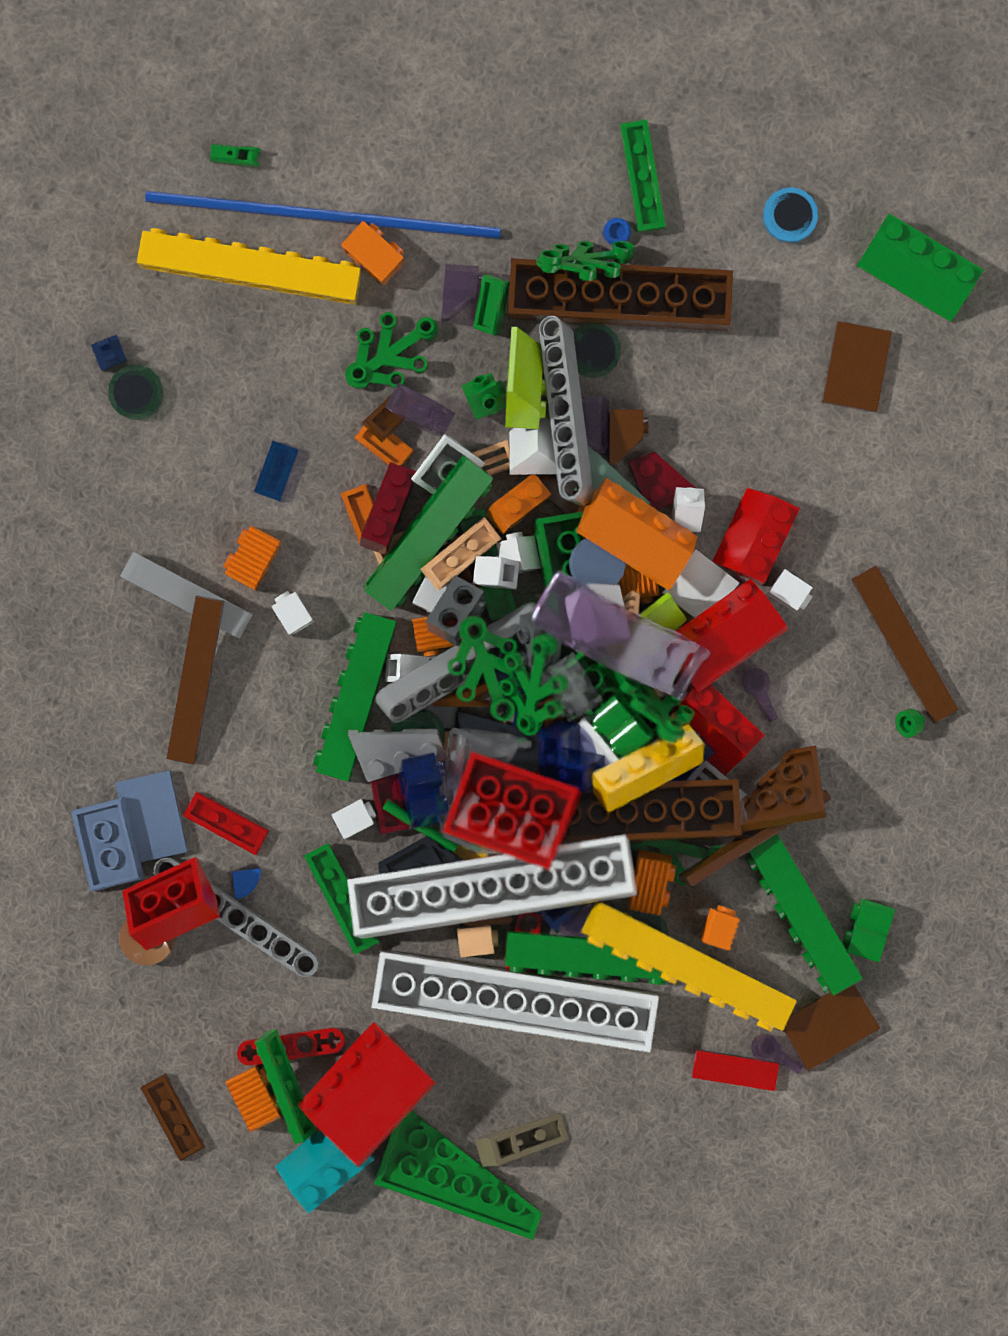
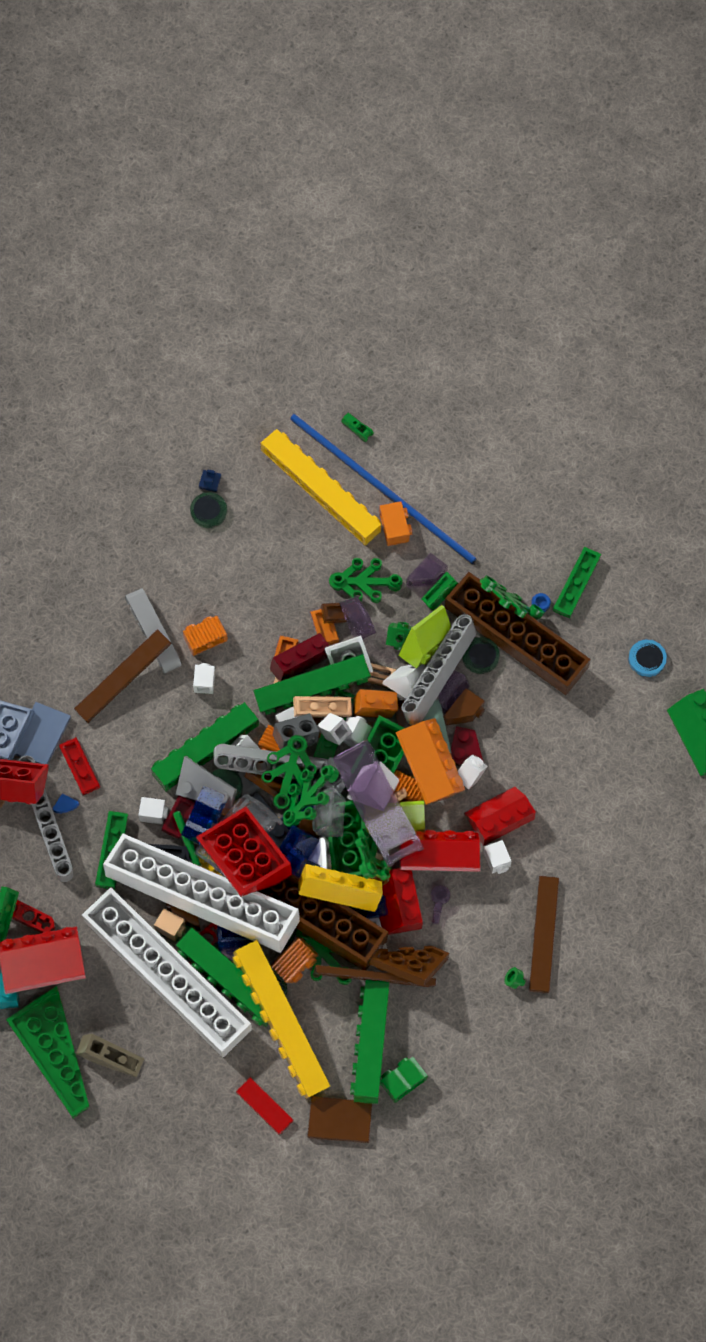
camera: 35 degrees right, 20 degrees down
(276, 471) = (253, 601): clear blue tile -> none
(595, 565) = (395, 760): sand blue tile -> none
(621, 726) = (342, 853): green brick -> none
(700, 585) = (446, 817): white tile -> none
(720, 927) = (315, 1012): orange brick -> none
(767, 1048) = (292, 1105): clear purple plate -> none
(856, 366) = (627, 763): reddish brown tile -> none

